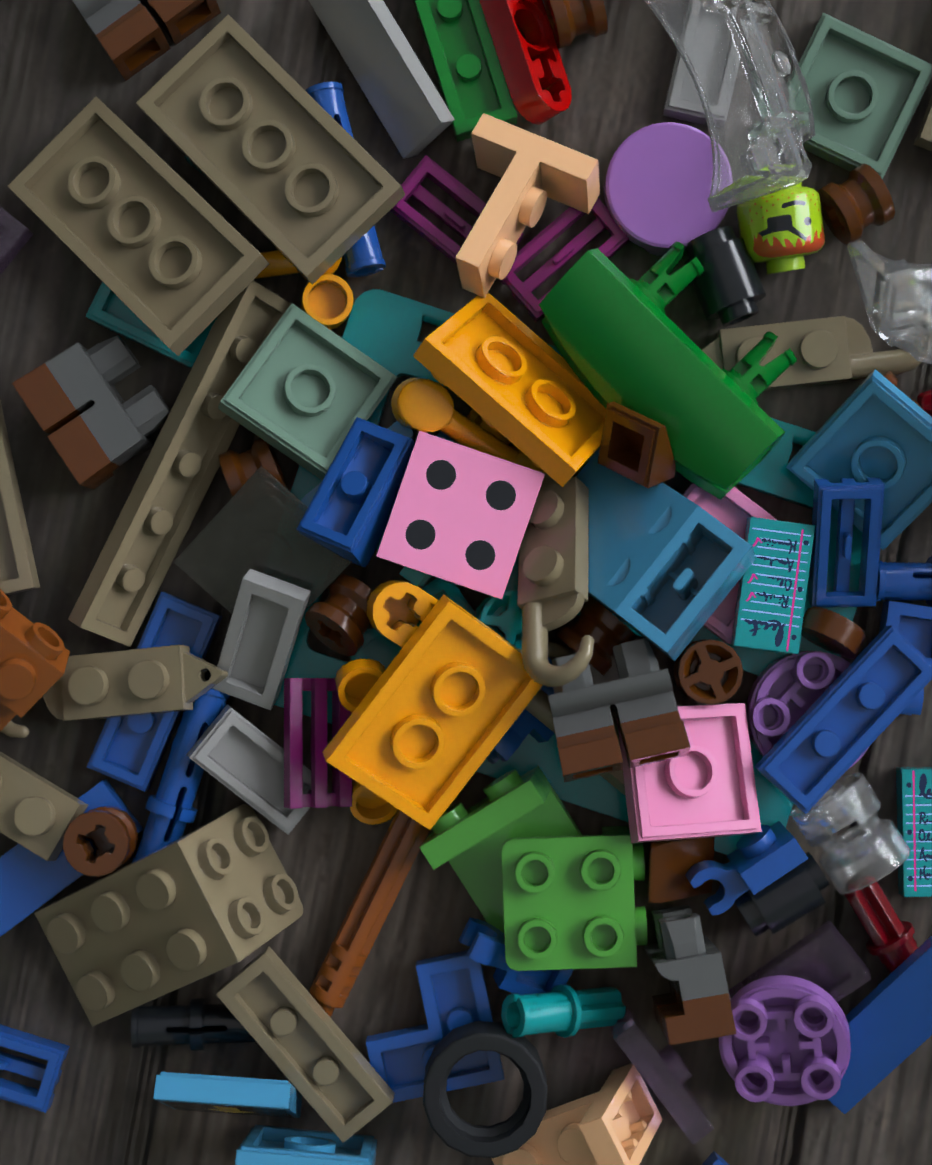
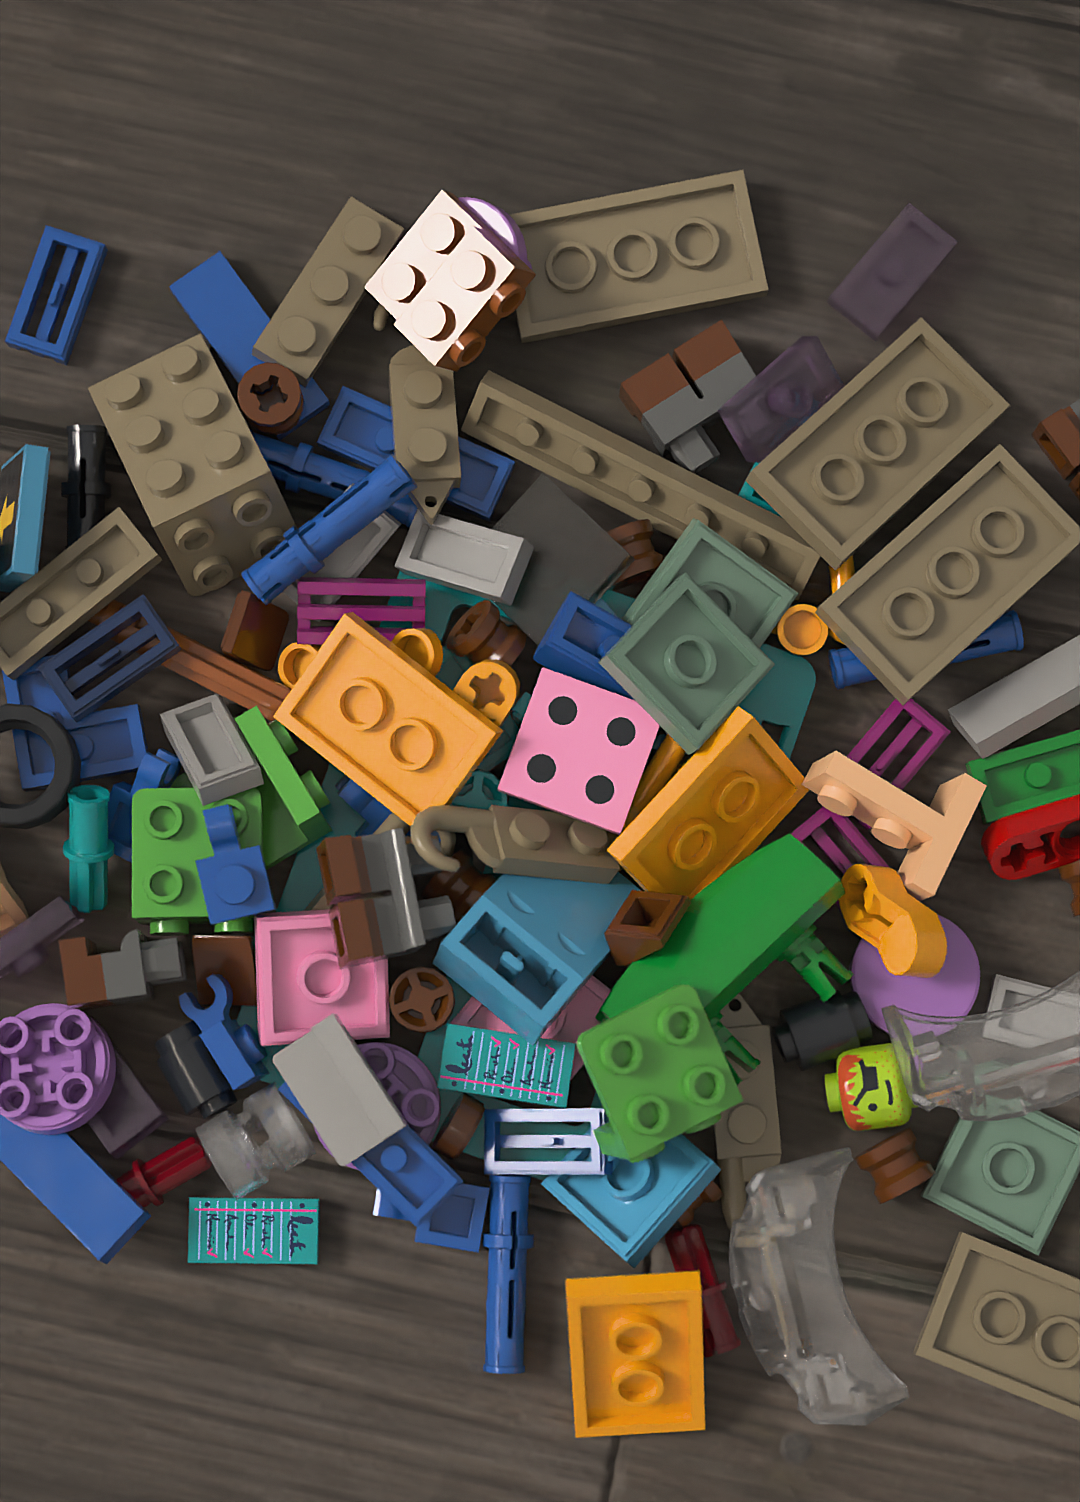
camera: 85 degrees right, 5 degrees down
(93, 321) = (781, 398): none -> clear purple plate
(244, 787) = (319, 537): none -> blue pin
(338, 849) = (254, 632): none -> reddish brown slope
(339, 951) = (123, 678): none -> dark blue tile
(369, 409) = (686, 663): none -> sand green tile
(462, 890) = (211, 749): none -> light grey tile
(599, 864) = (234, 878): none -> blue plate
(623, 201) = (893, 921): none -> light orange piece
(794, 429) = (657, 1073): none -> bright green bracket
(810, 750) = (339, 1090): none -> light grey panel

